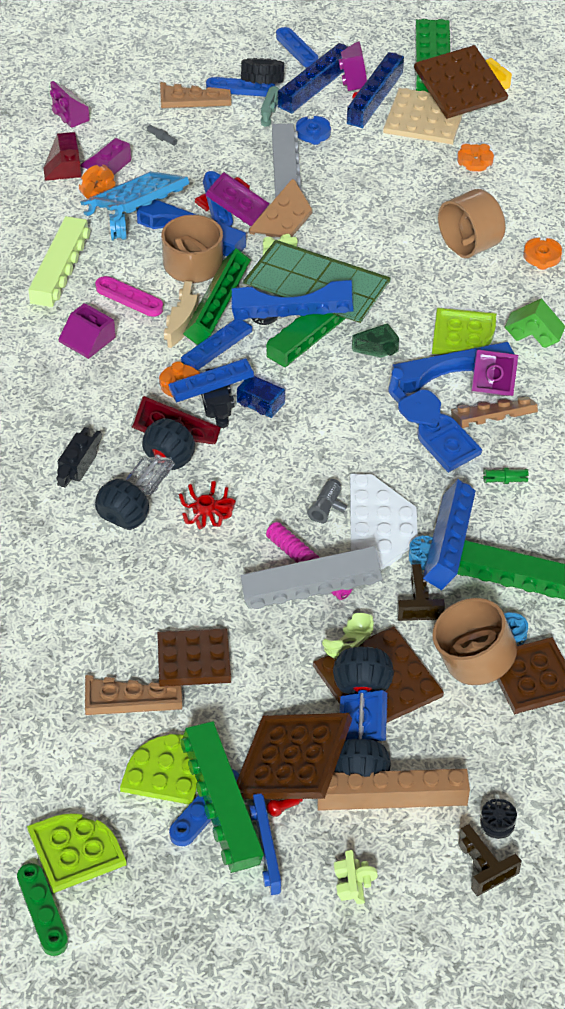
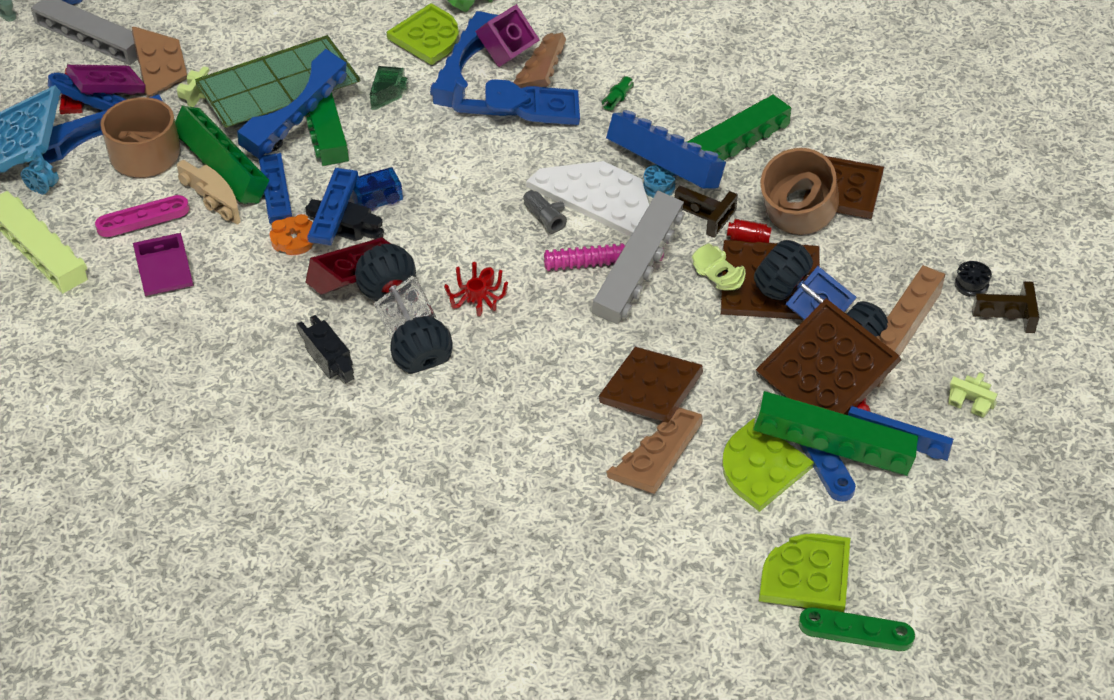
camera: 55 degrees left, 0 degrees up
(416, 638) = (748, 231): none -> red head

